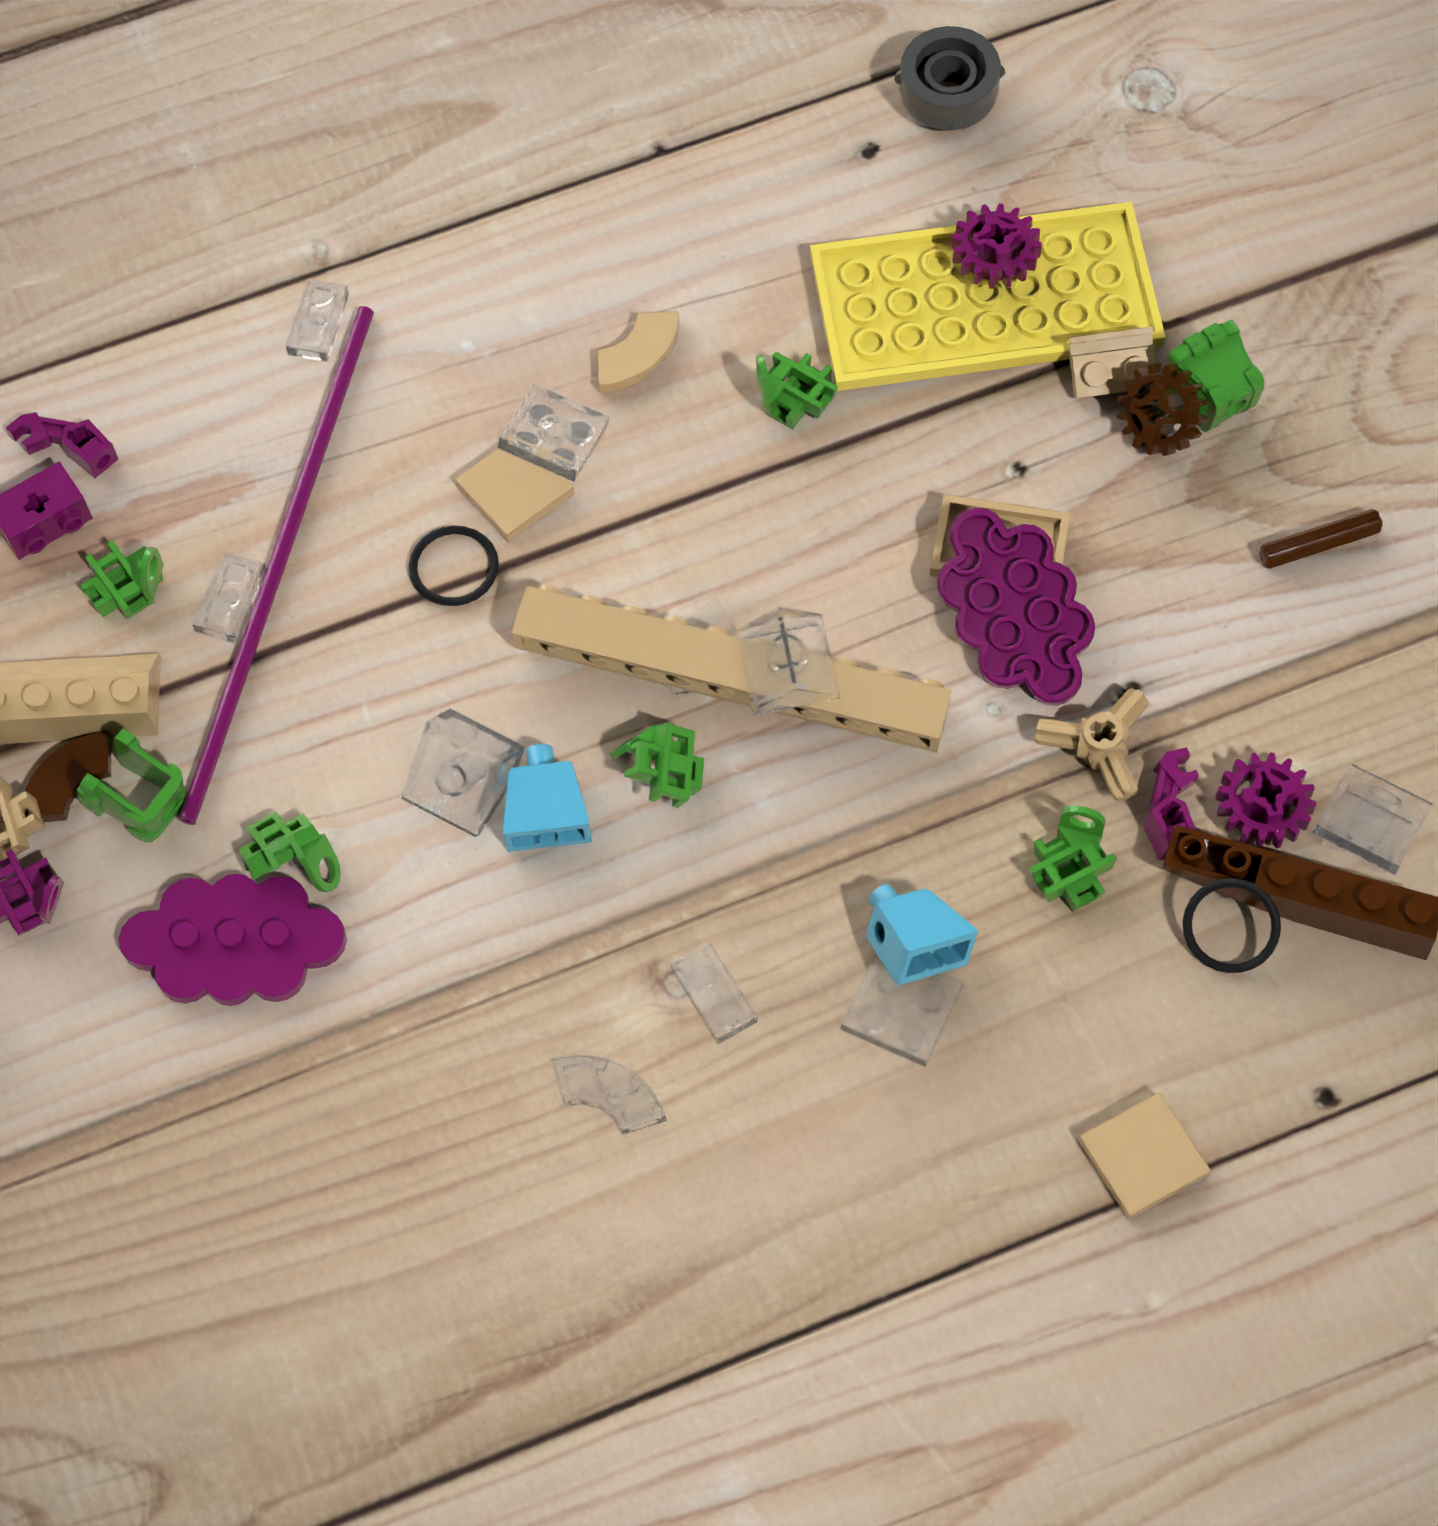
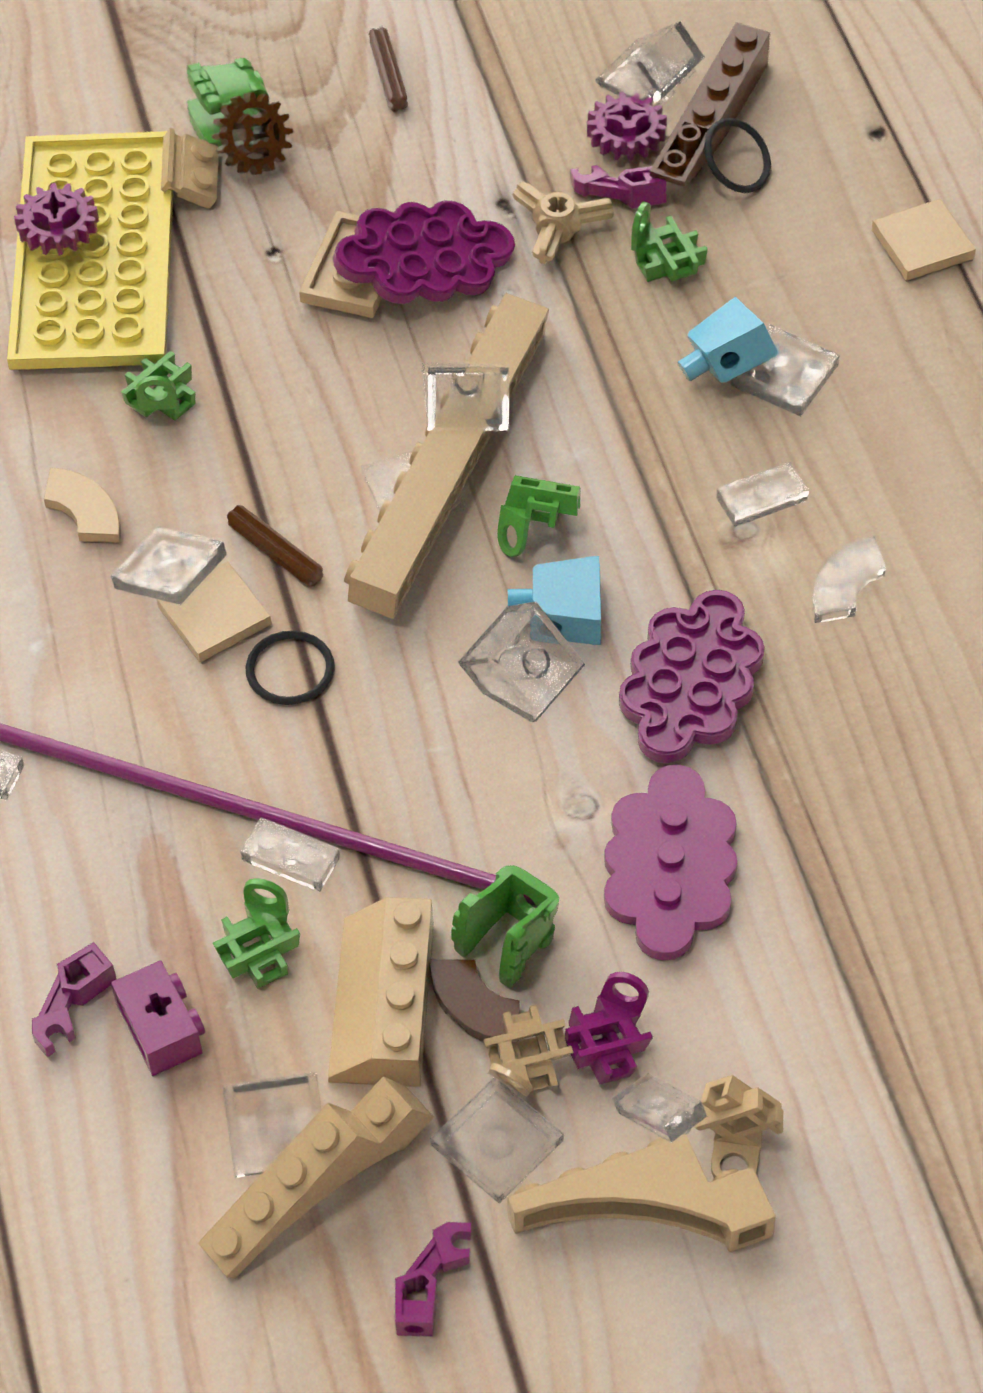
camera: 85 degrees left, 10 degrees down
(280, 842) = (570, 808): bright green piece -> none
(461, 939) = (691, 676): none -> magenta plate
(601, 527) = (275, 545): none -> reddish brown axle

